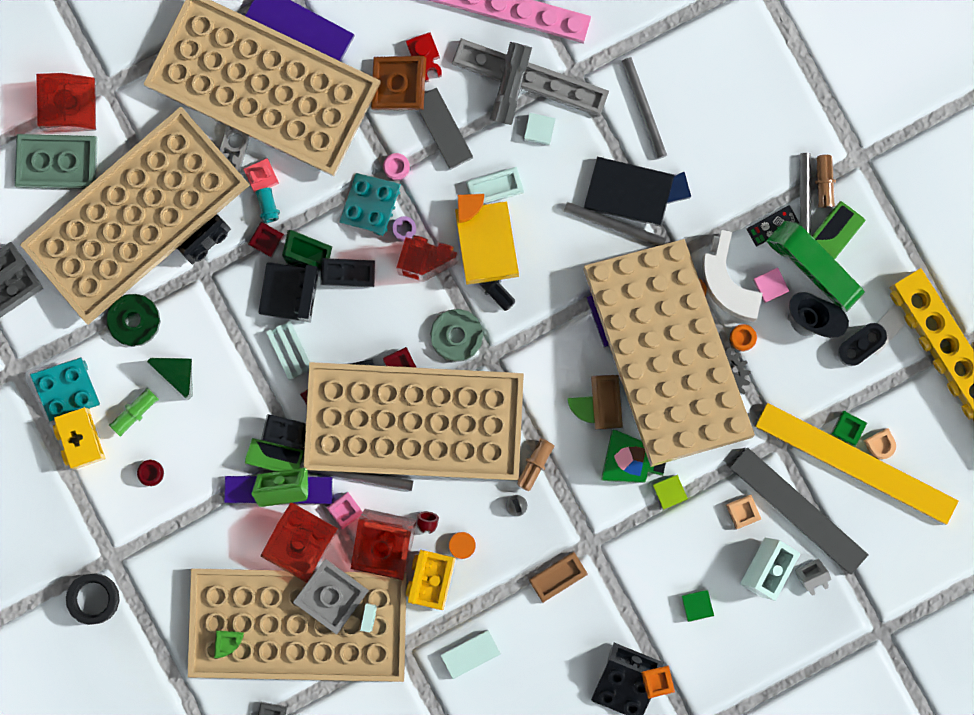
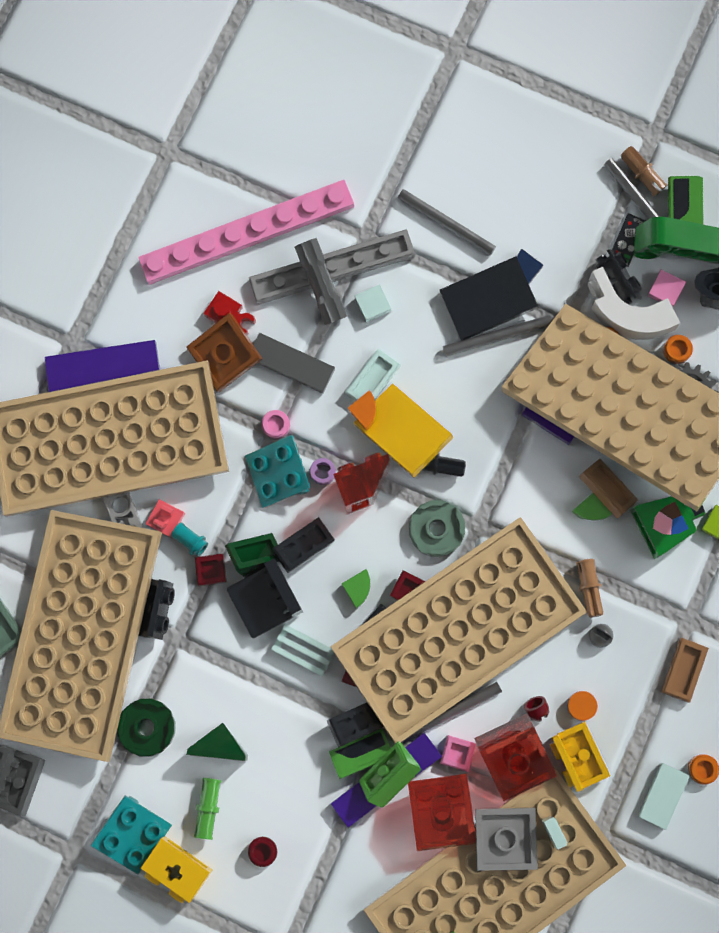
camera: 30 degrees left, 5 degrees down
(364, 335) = (358, 588): none -> bright green tile
(515, 658) = (703, 769): none -> orange tile
(744, 239) = (615, 268): none -> black hinge

